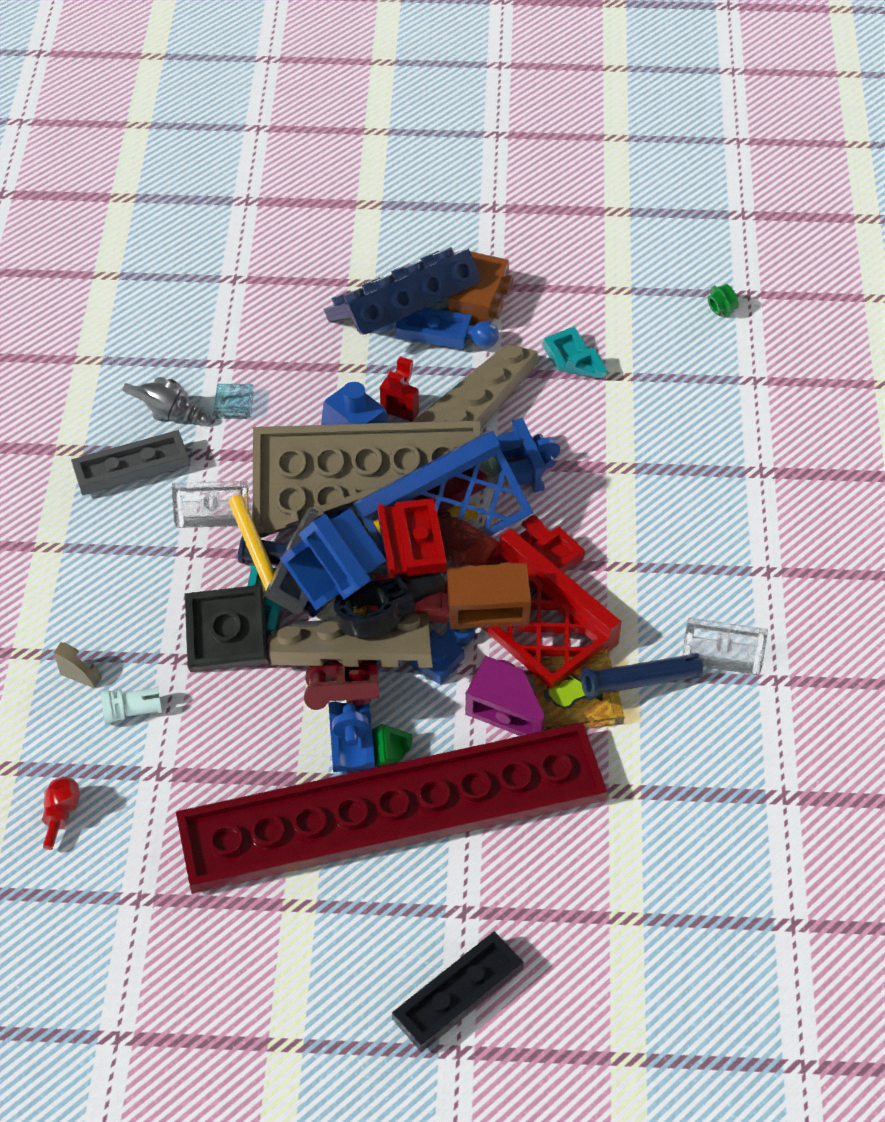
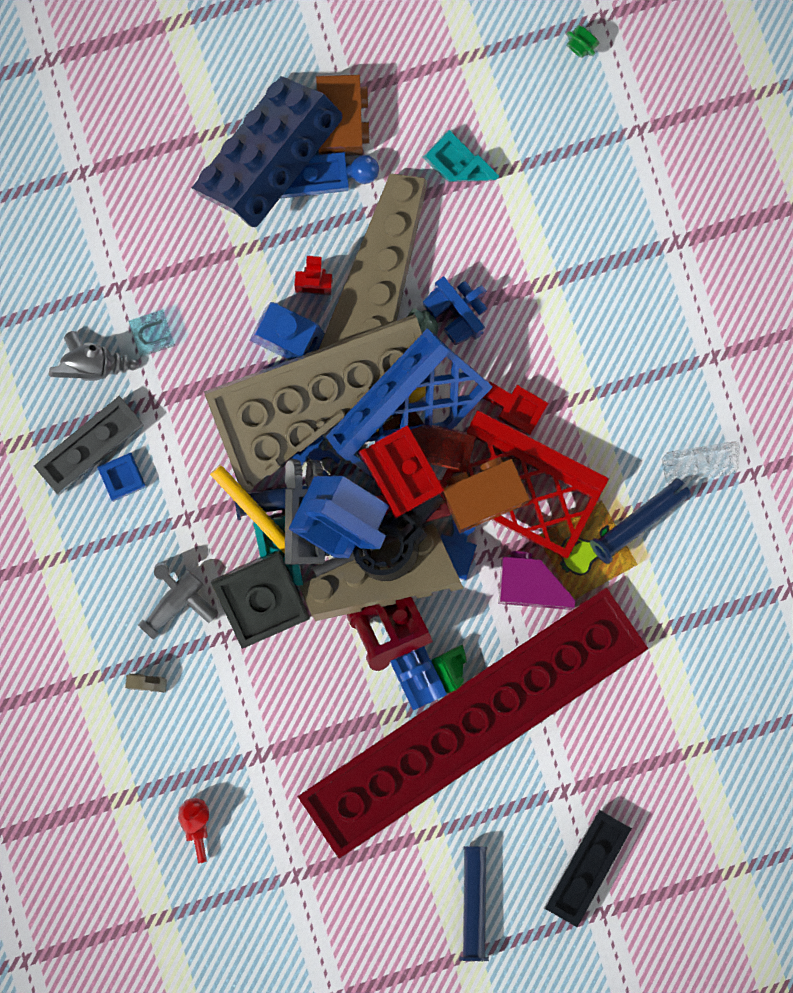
camera: 25 degrees left, 30 degrees up
(120, 705) = (200, 707): light aqua pin -> none
(148, 499) = (121, 477): none -> blue tile
(151, 603) = (180, 594): none -> flat silver piece
(207, 503) = (185, 468): clear slope -> none
(315, 988) = (474, 904): none -> dark blue pin

